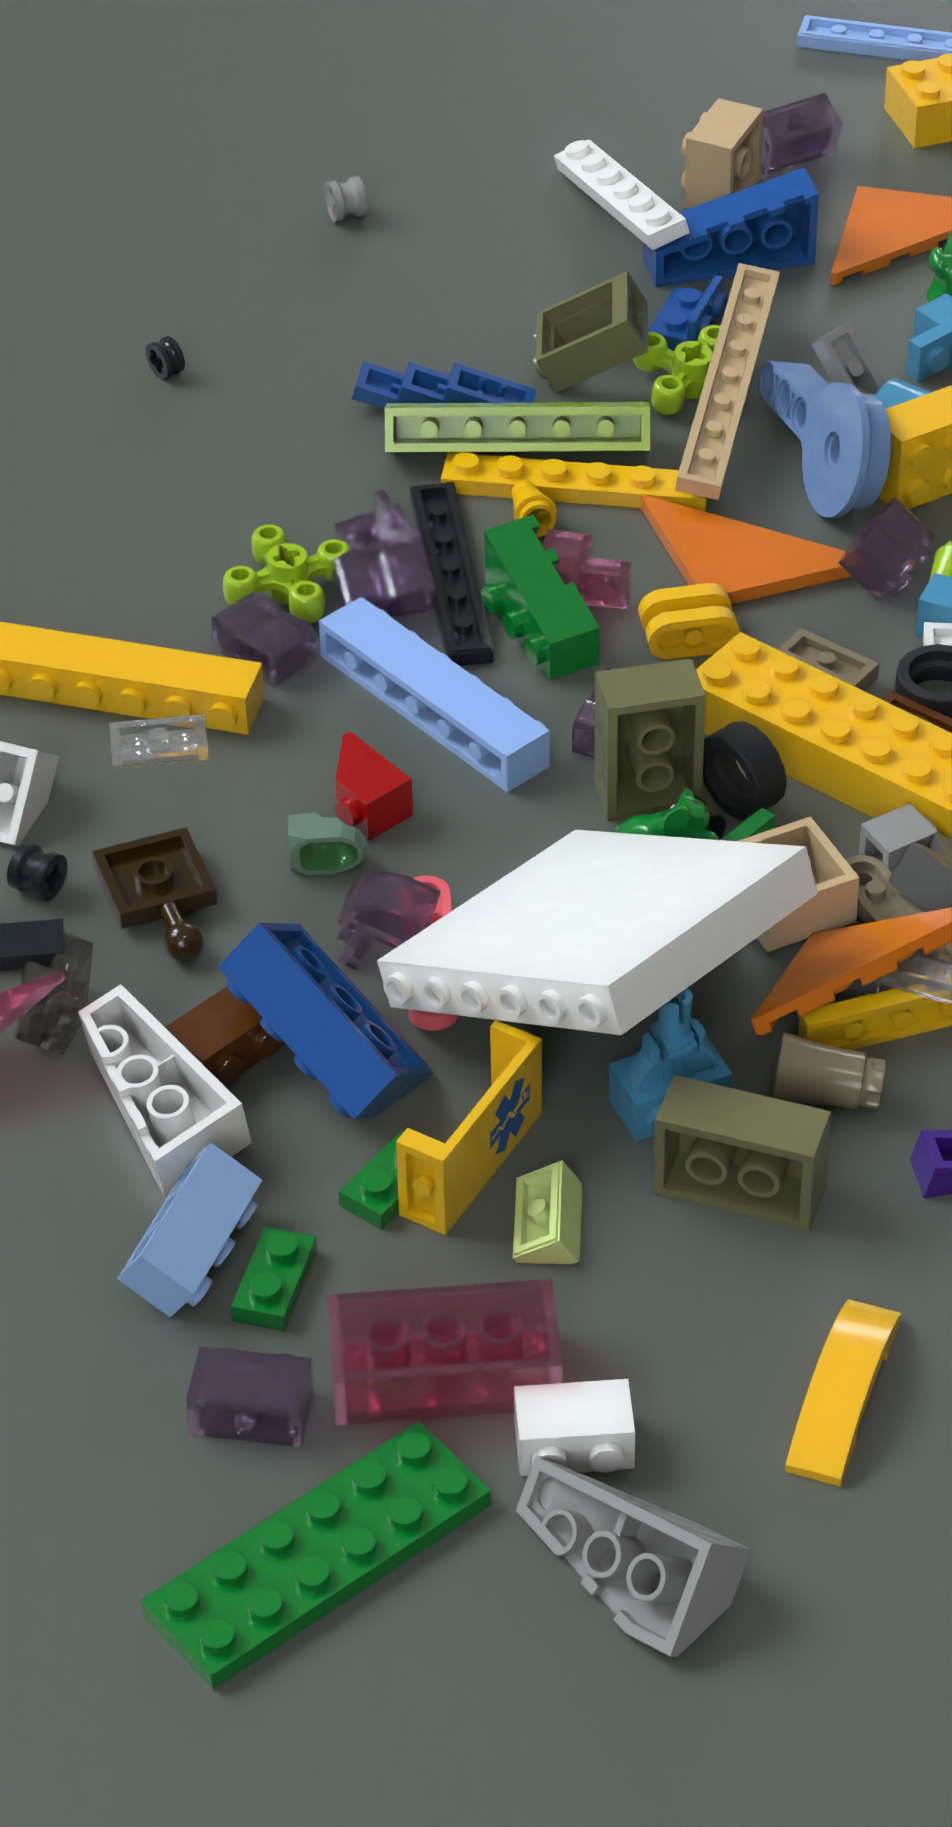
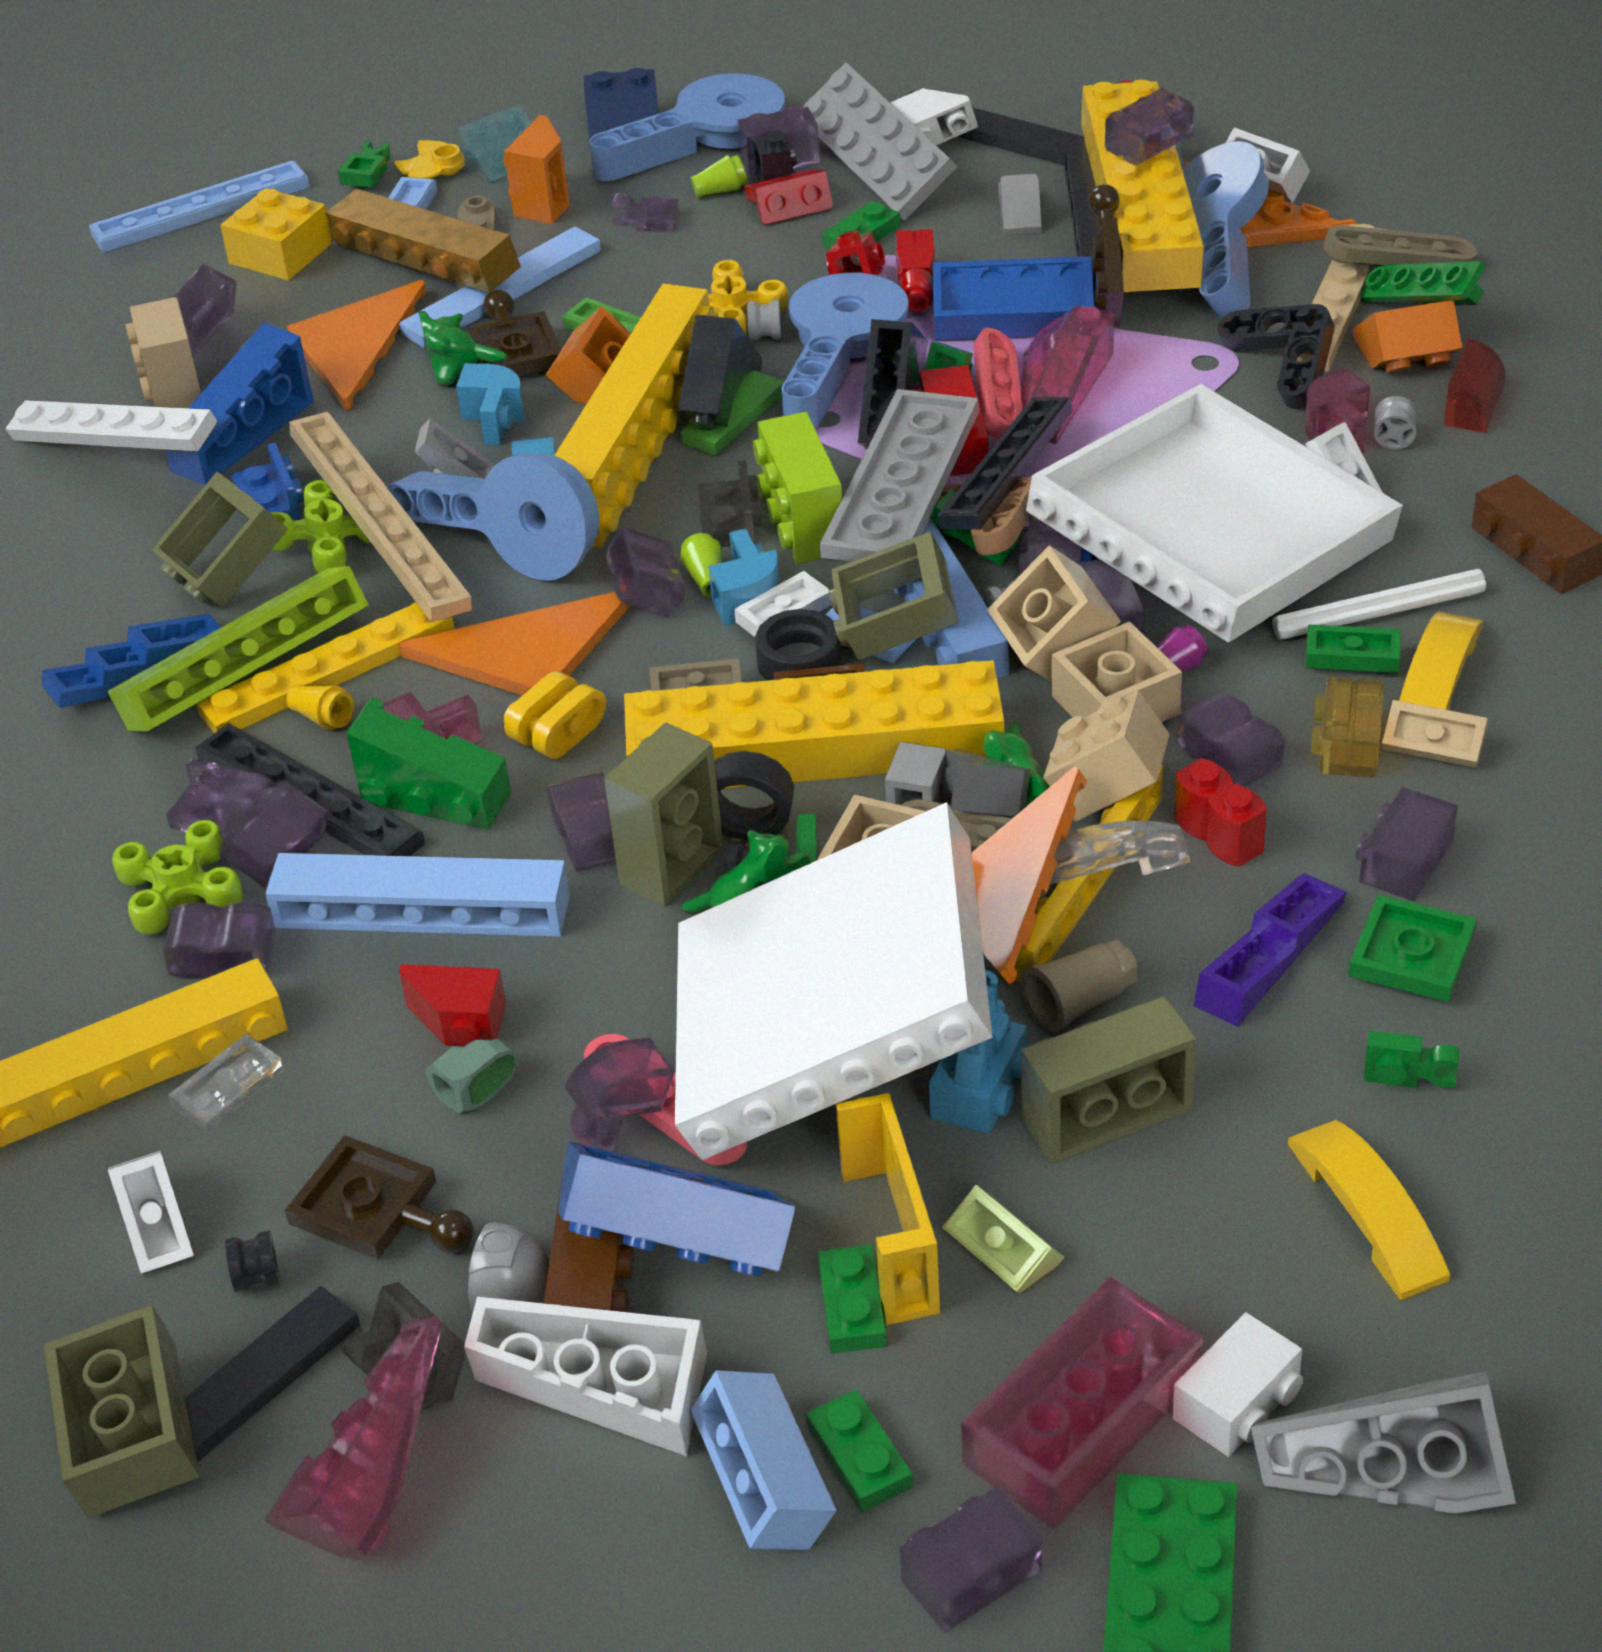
camera: 40 degrees left, 0 degrees up
(181, 983) = (507, 1265): none -> light grey helmet

